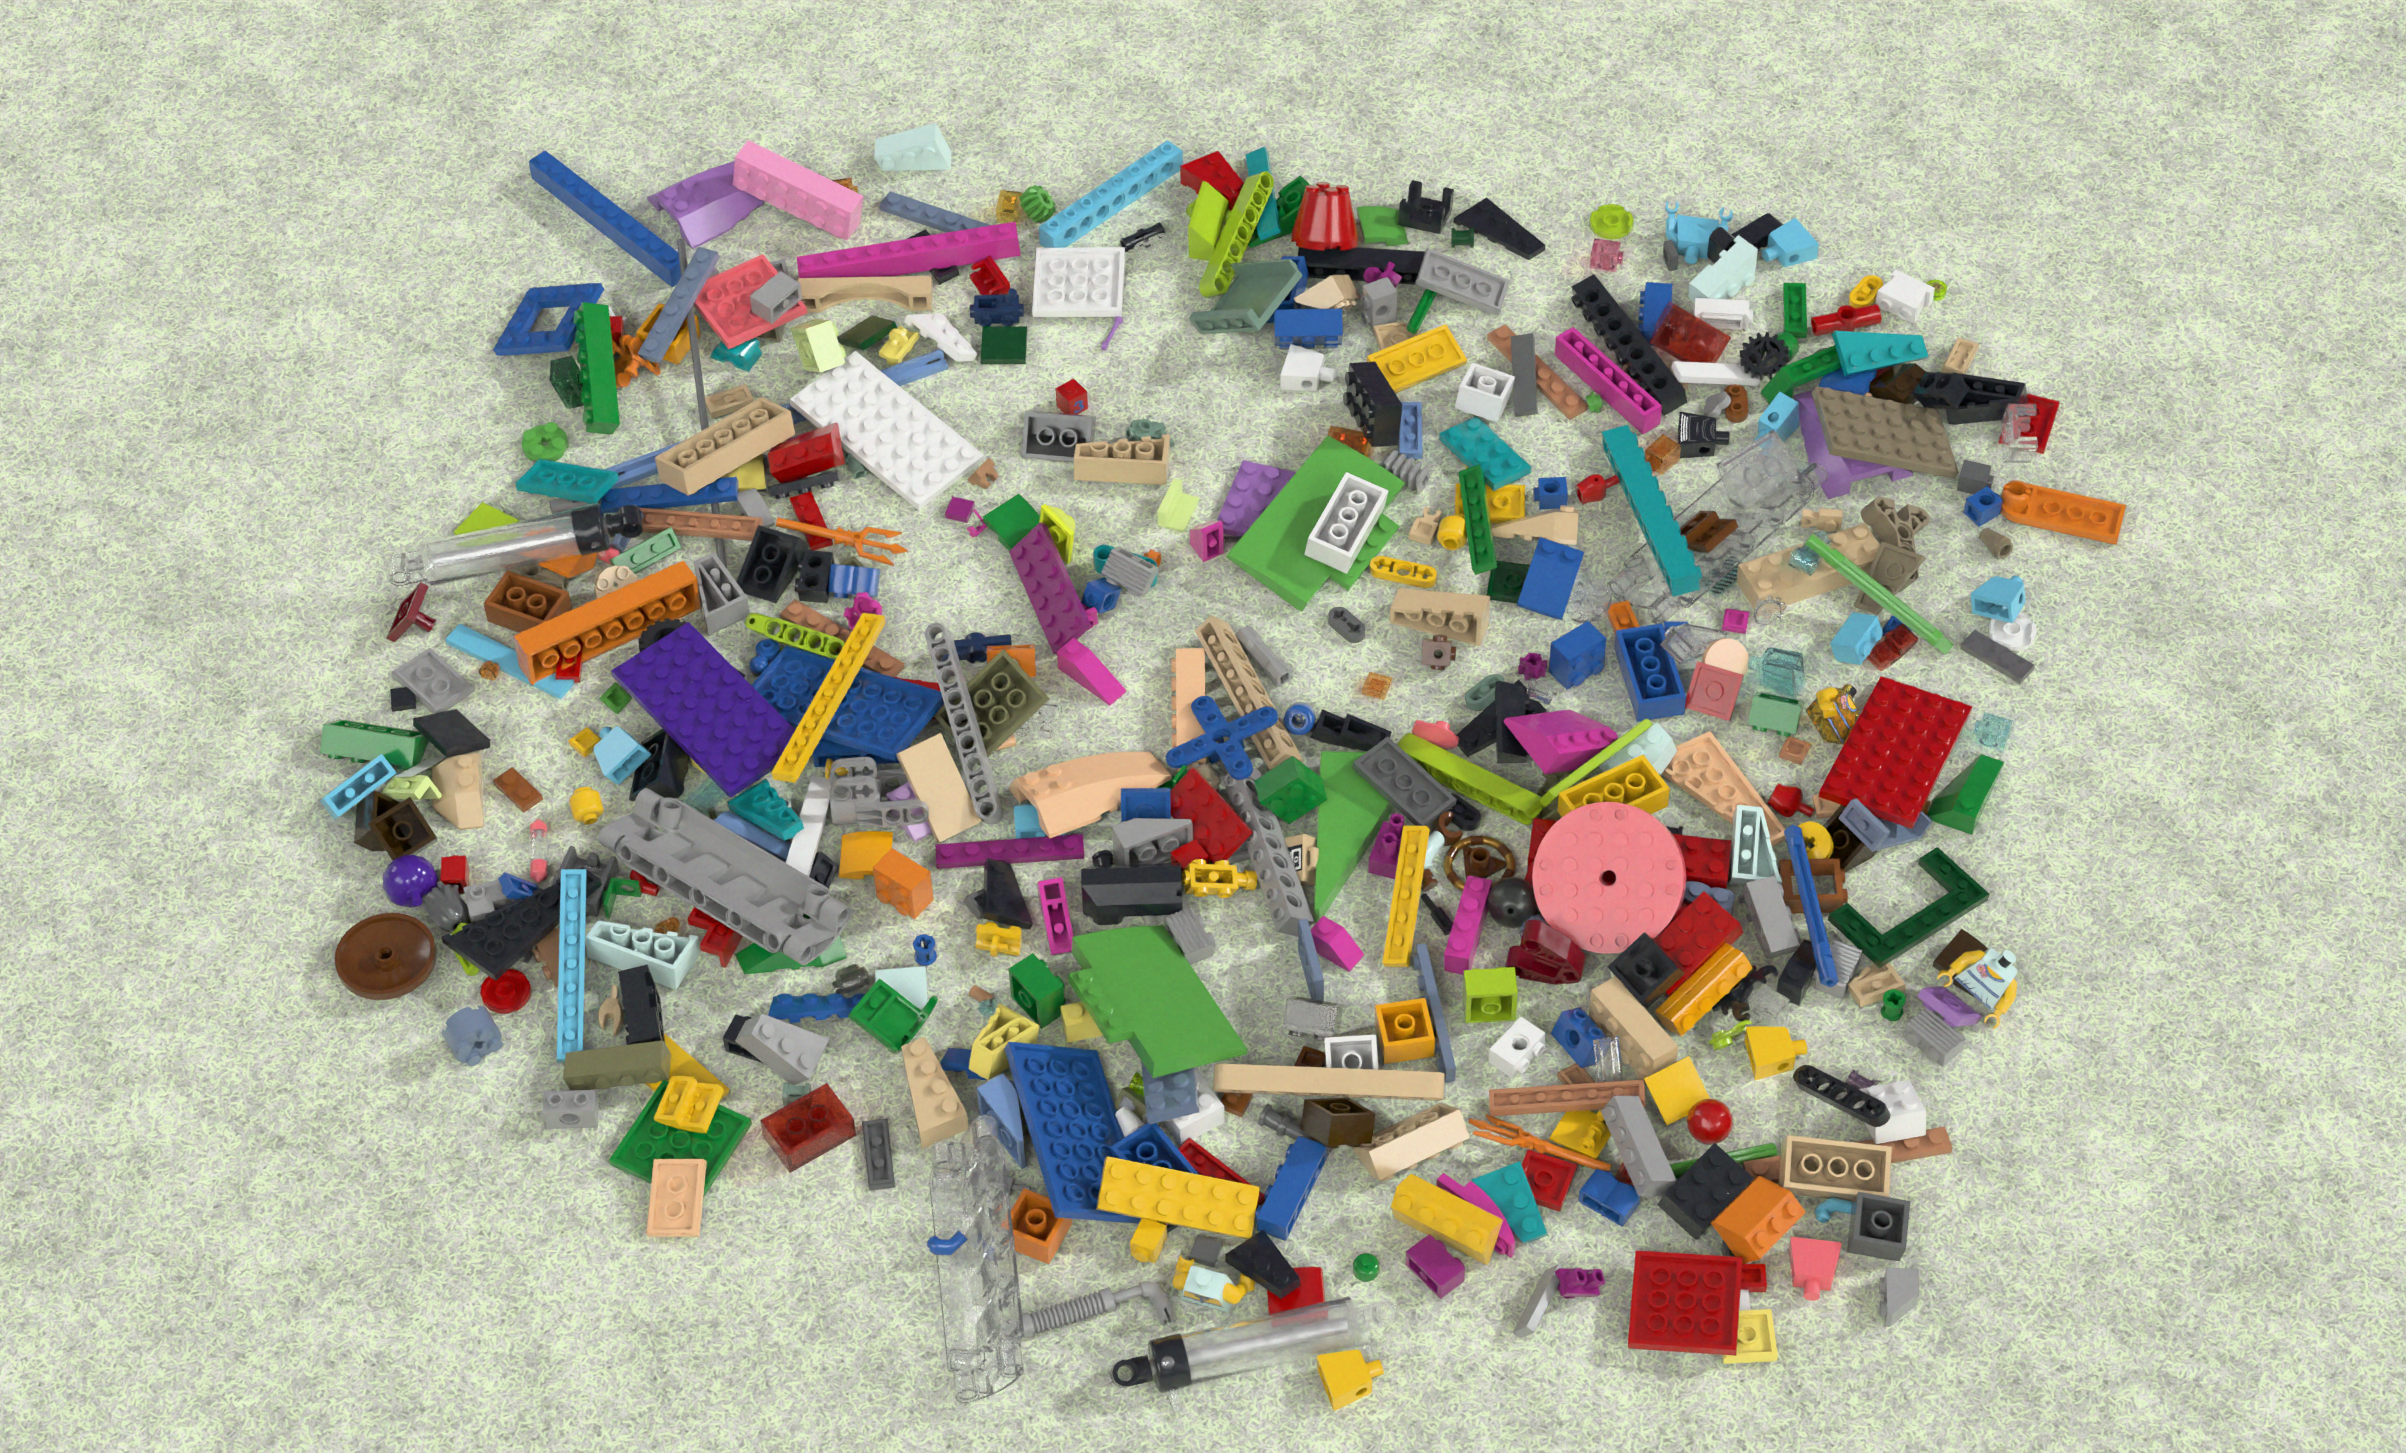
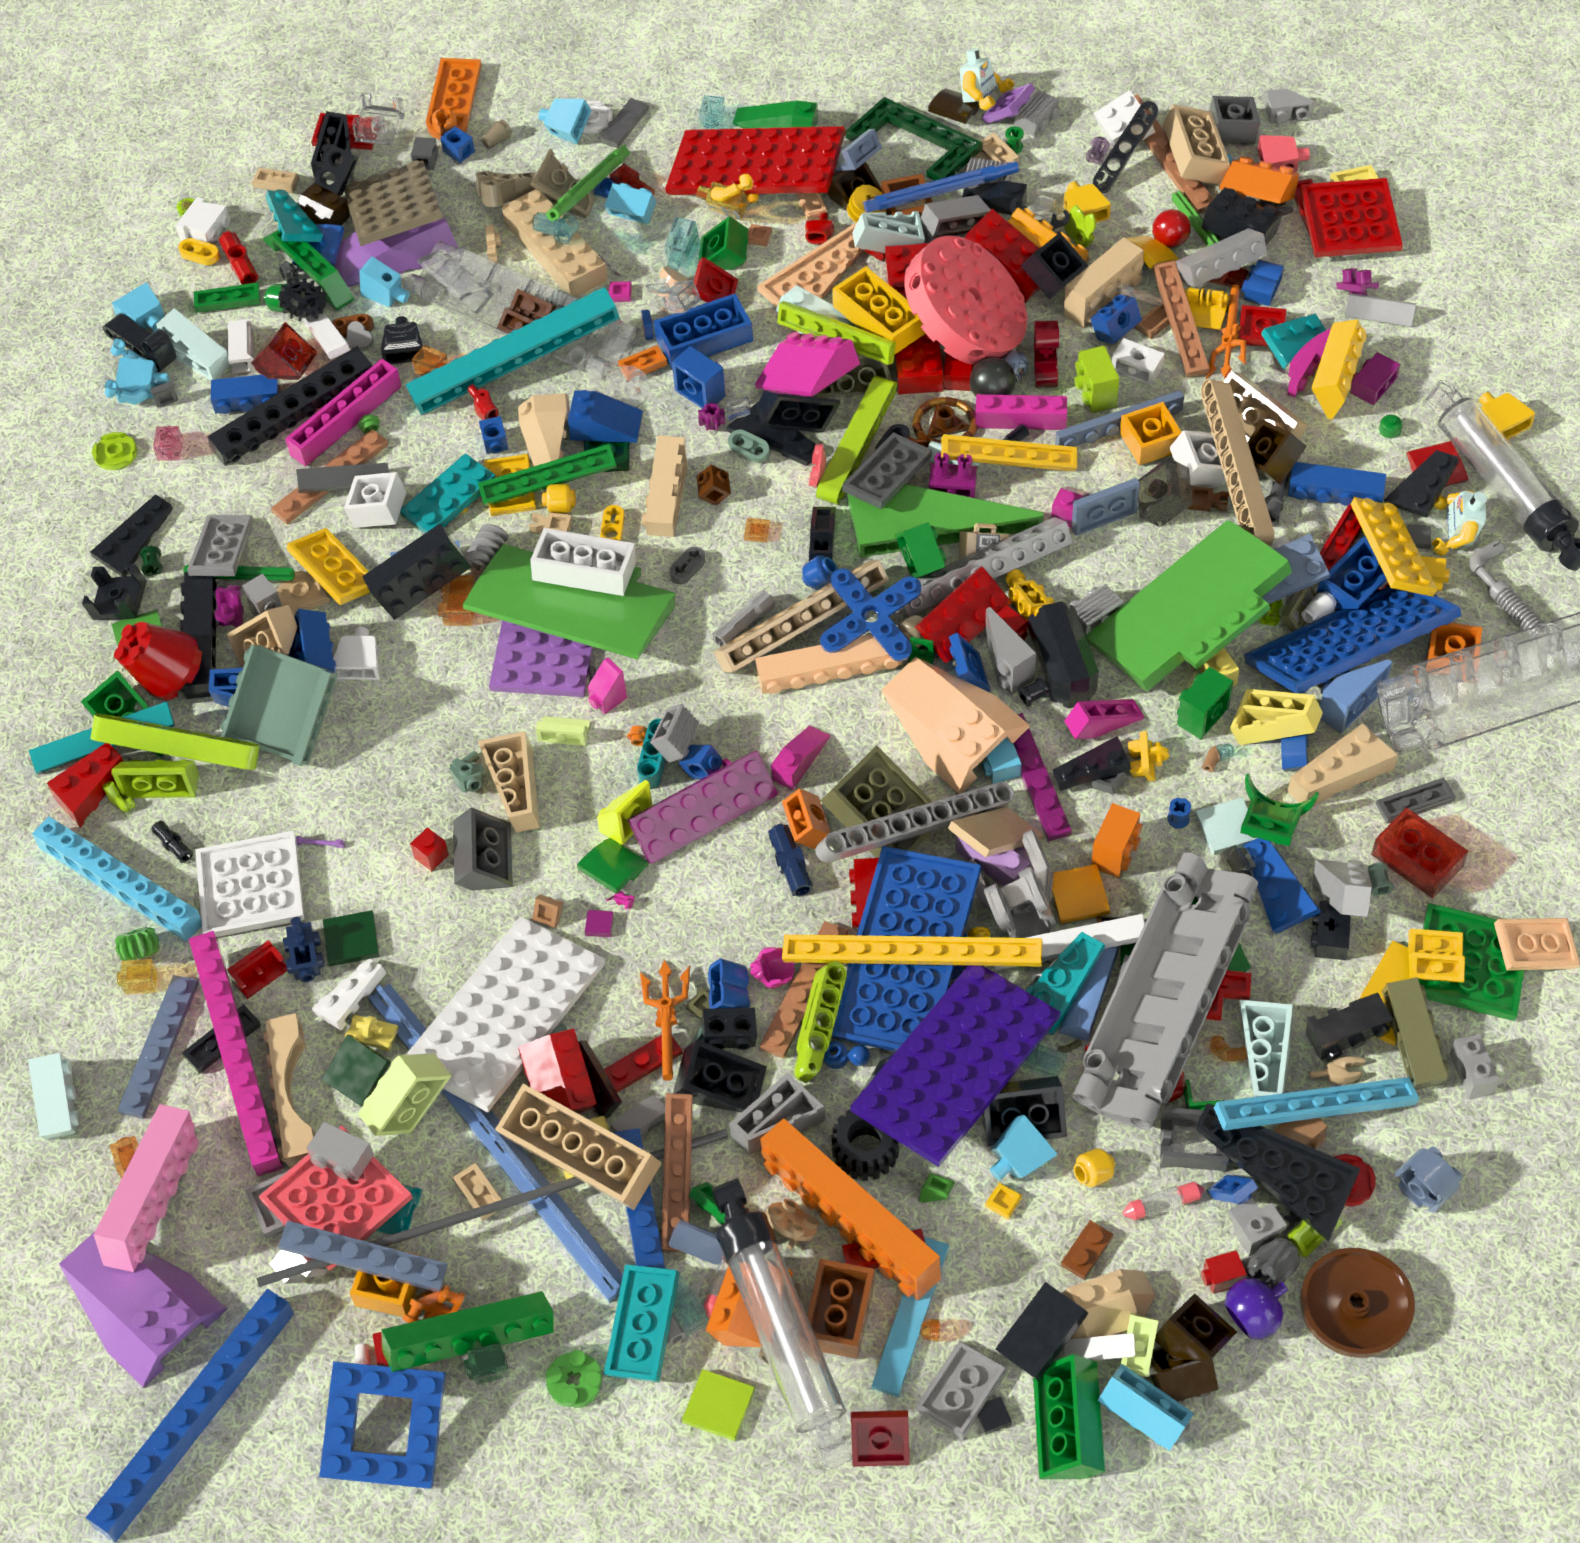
camera: 100 degrees left, 5 degrees up
(946, 1247) = (1504, 716): blue arm -> none

